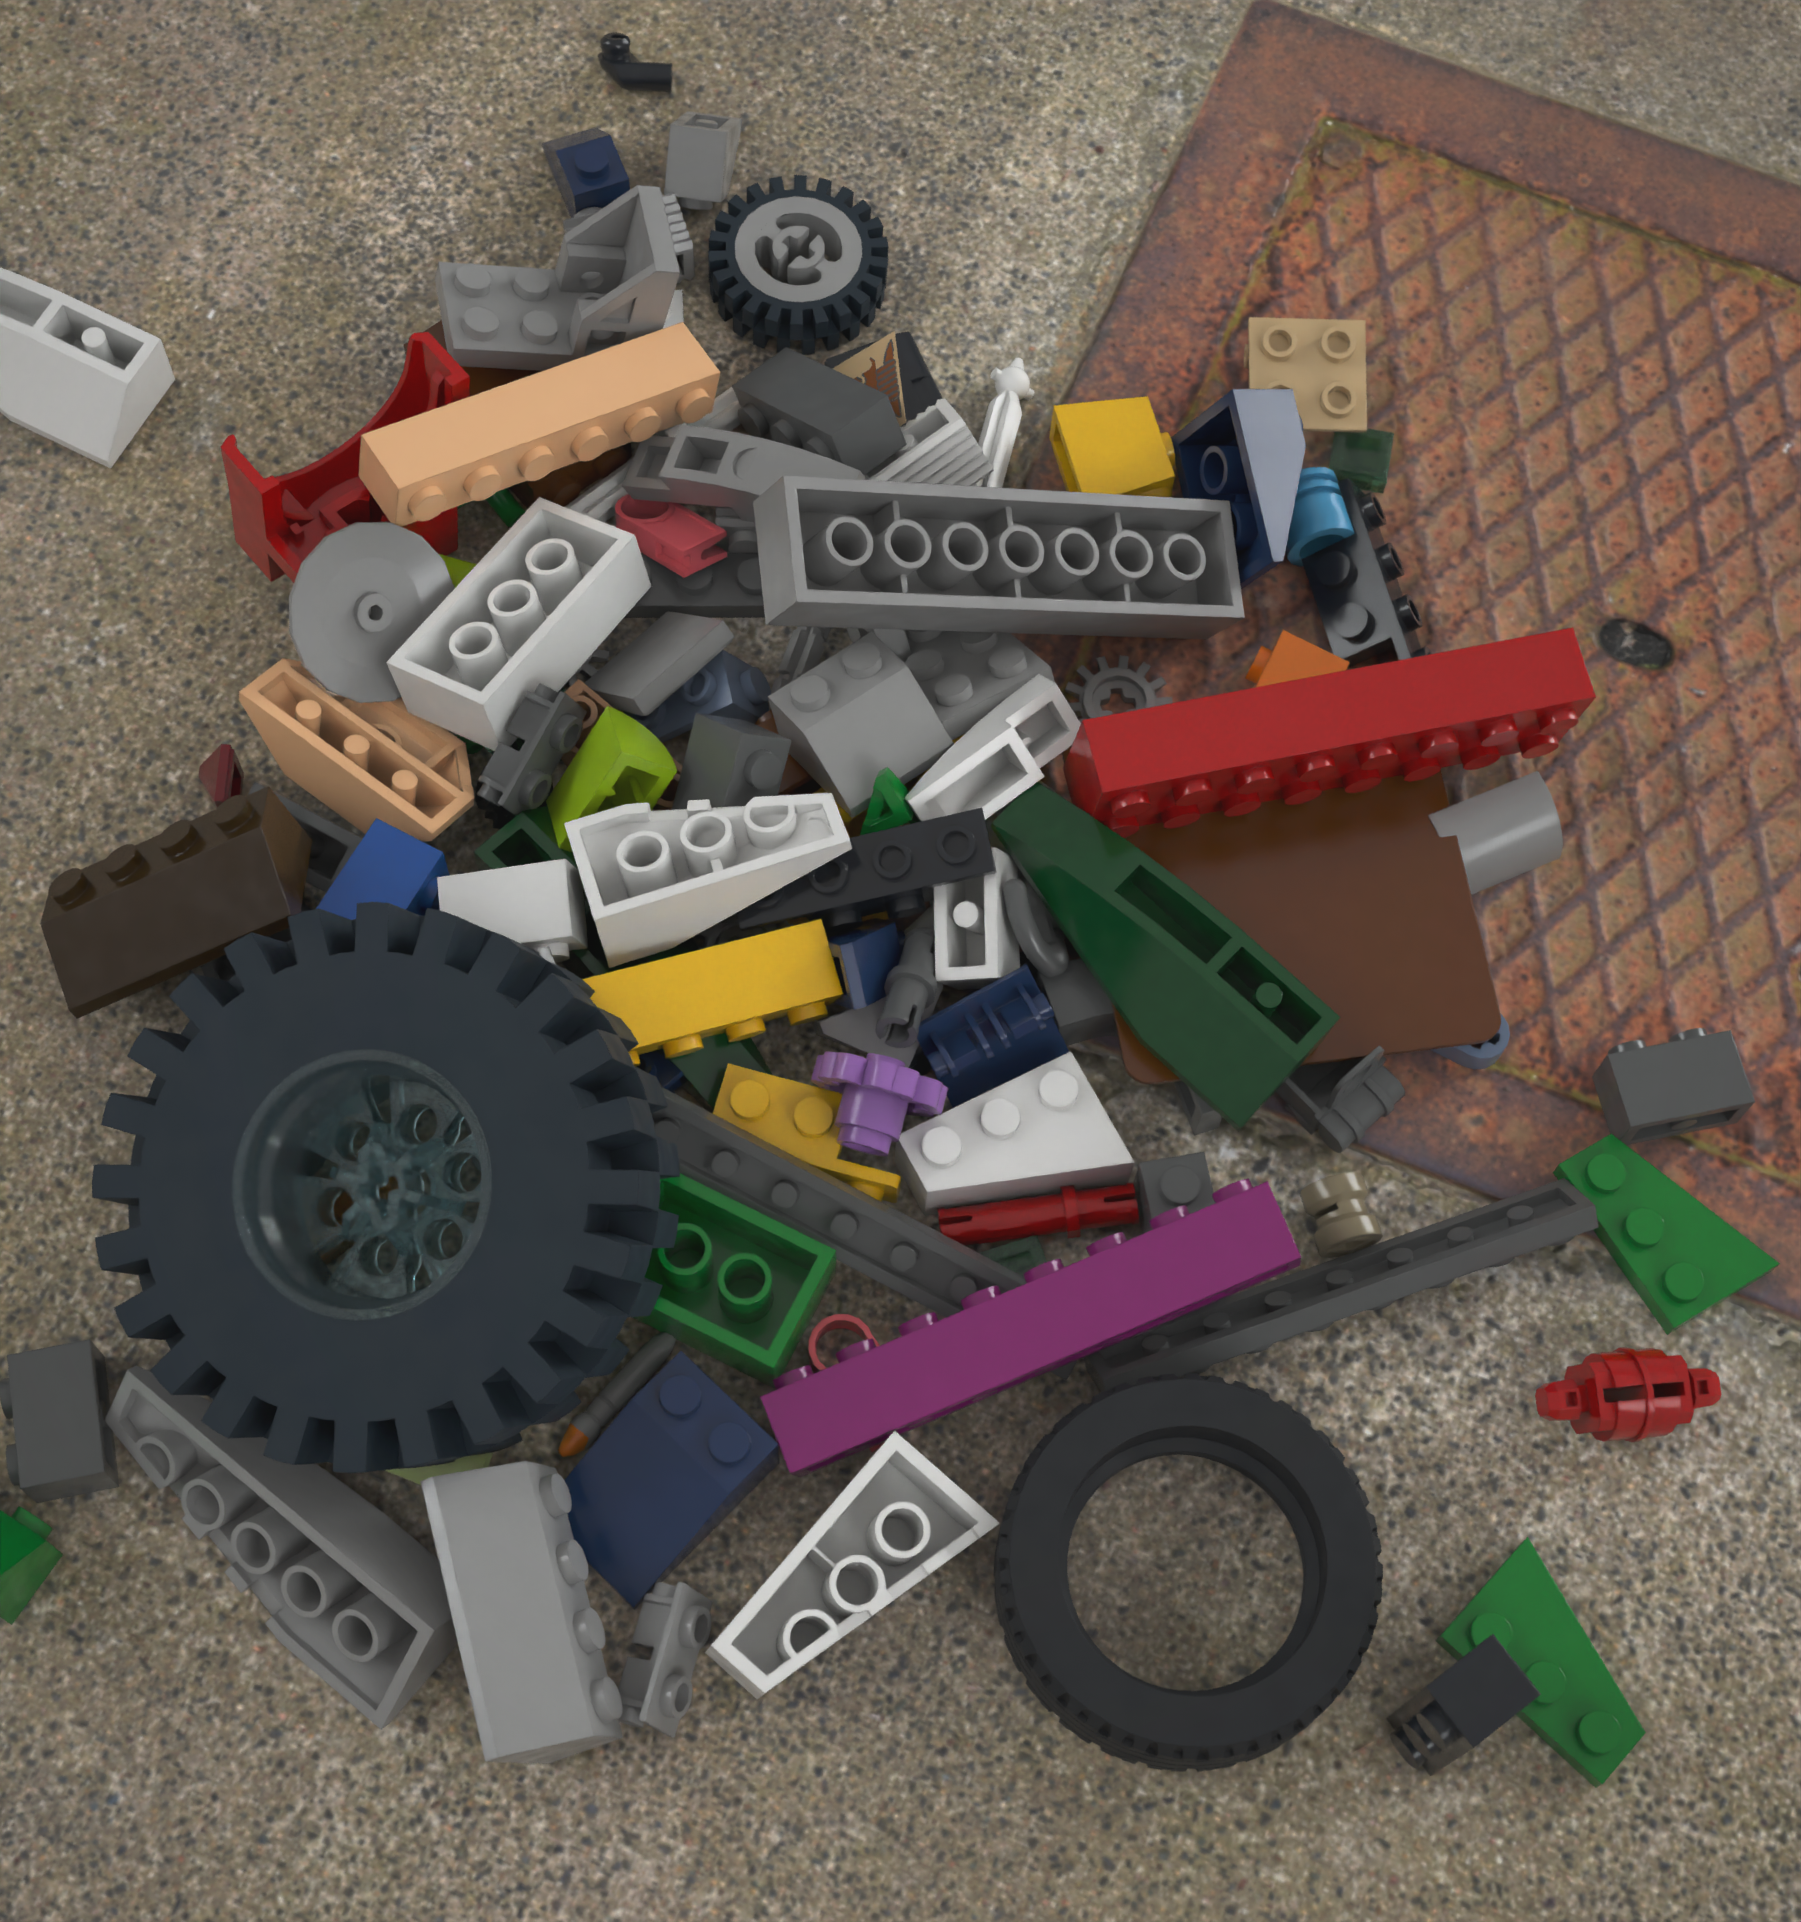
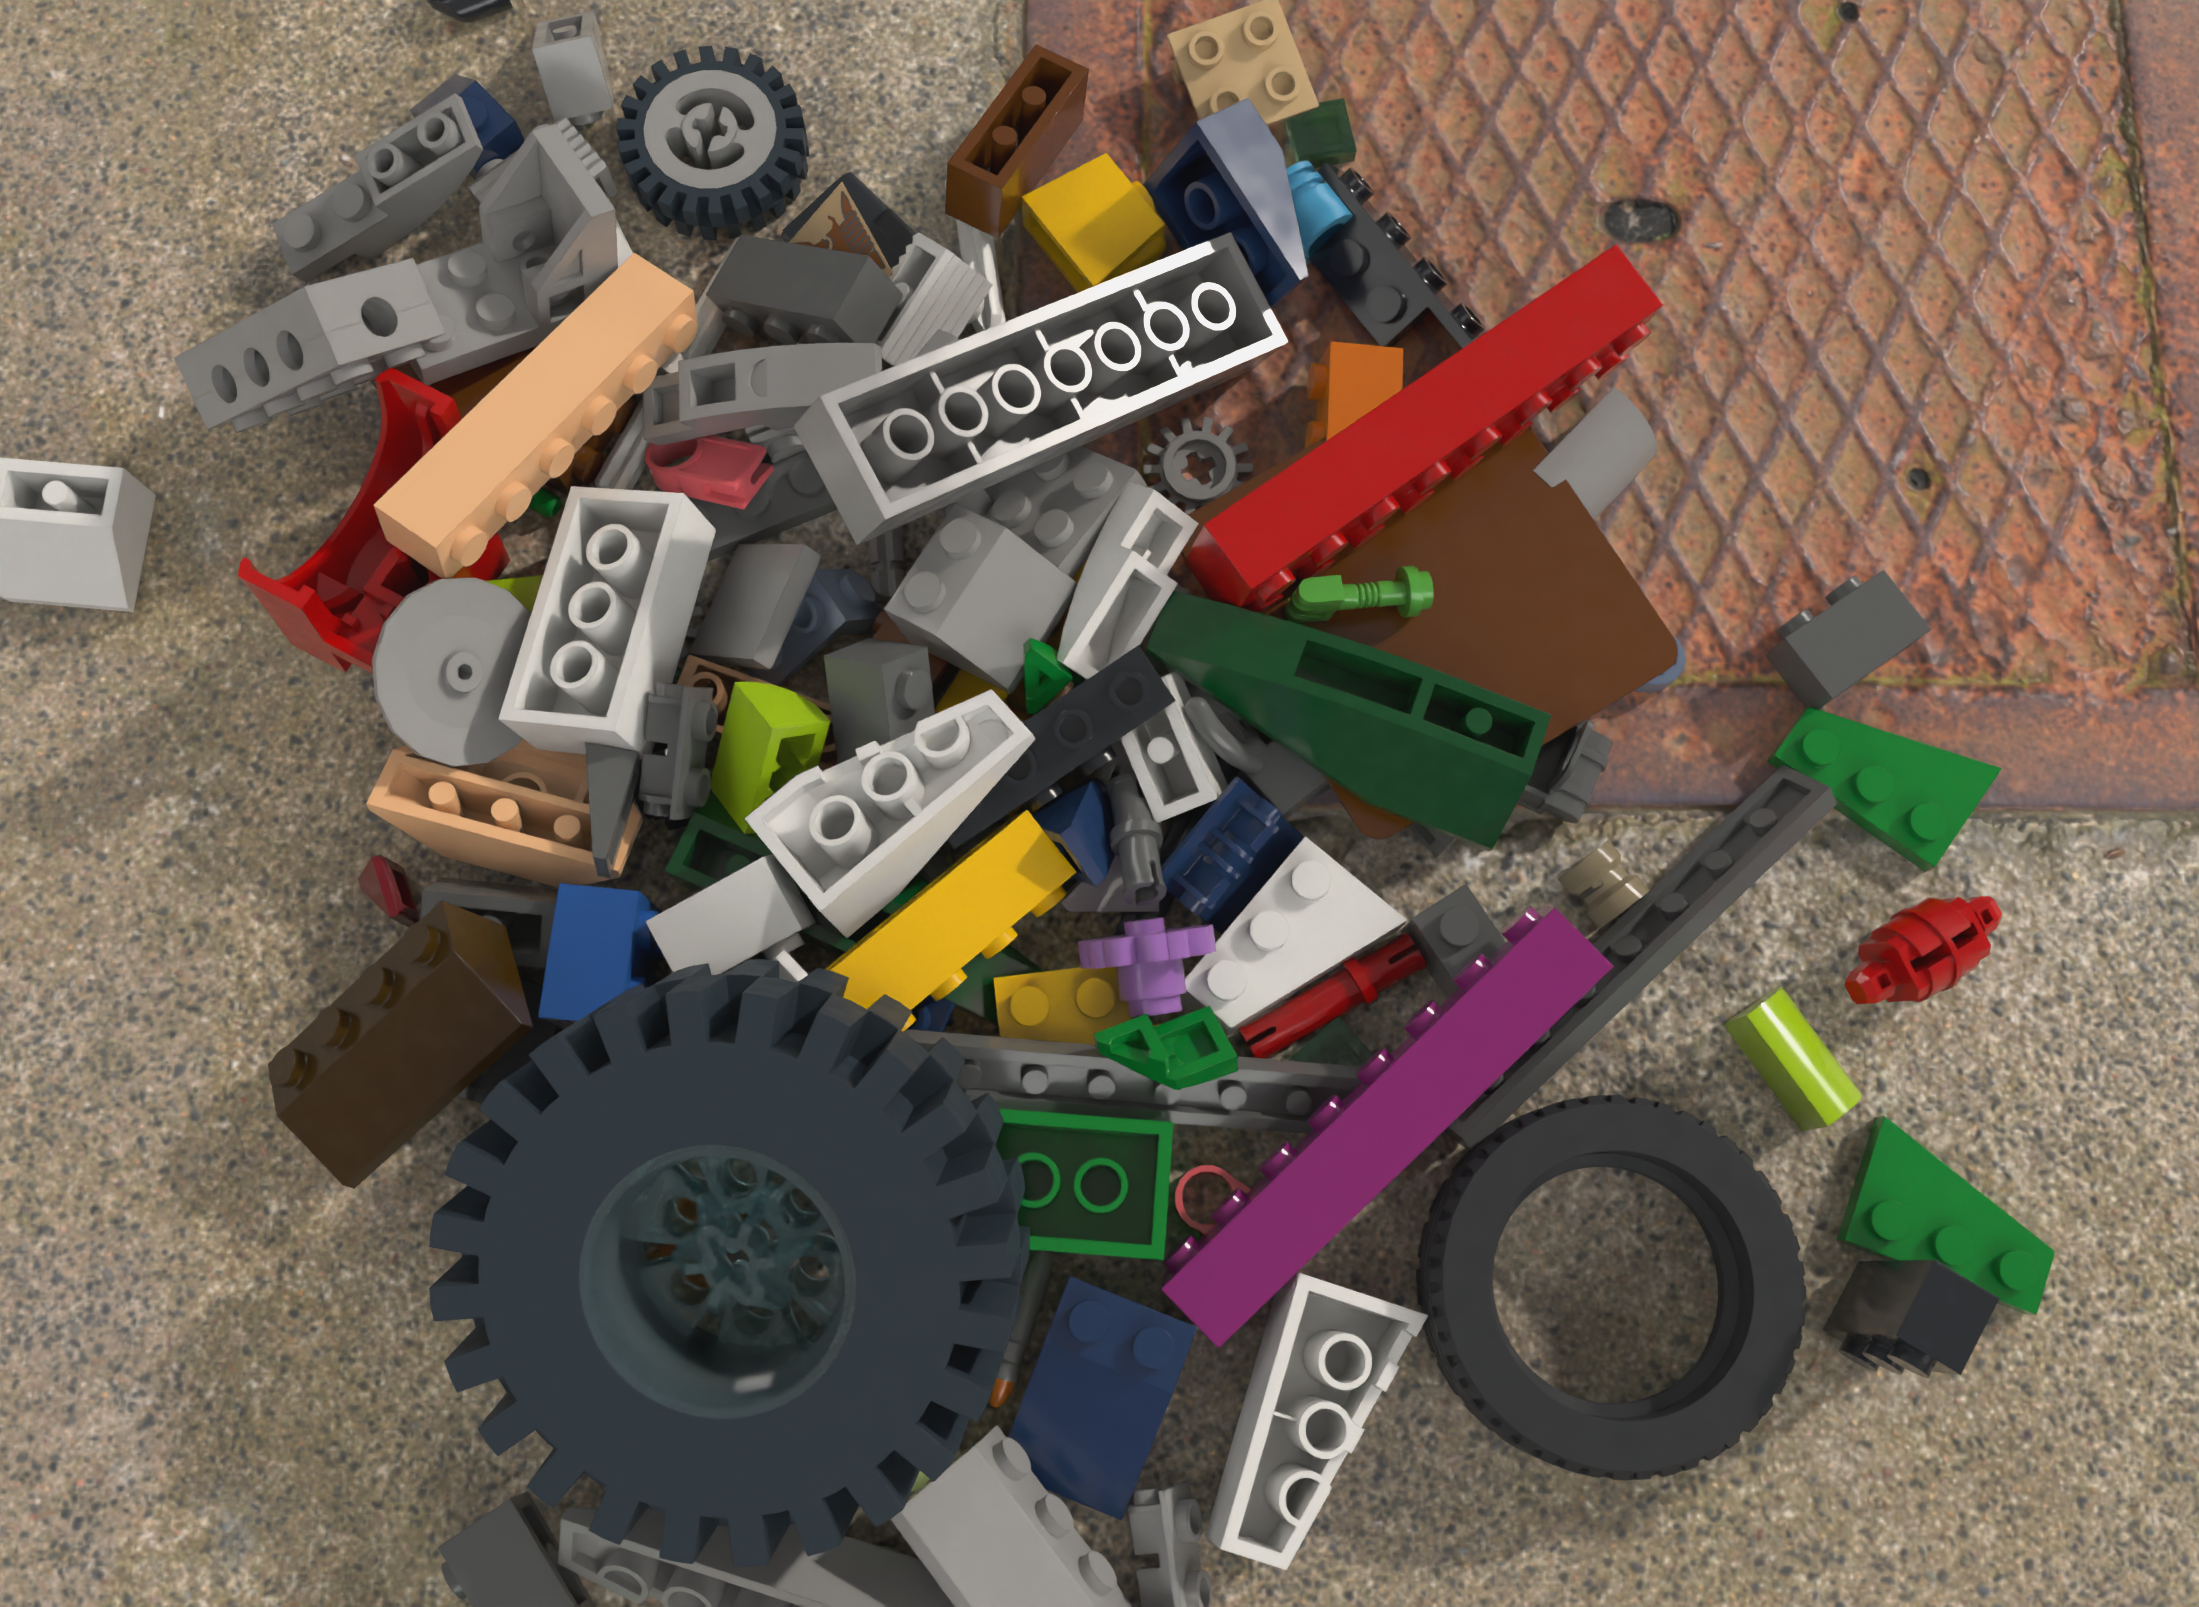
camera: 20 degrees left, 10 degrees up
(366, 293) = (311, 346): none -> light grey brick
(456, 767) = (612, 789): none -> dark grey piece
(499, 201) = (394, 192): none -> light grey slope
(861, 1188) = (1172, 1053): none -> green slope
(1069, 356) = (1016, 141): none -> reddish brown brick
(1173, 840) = (1322, 596): none -> bright green hinge
(1459, 1447) = (1793, 1061): none -> lime brick

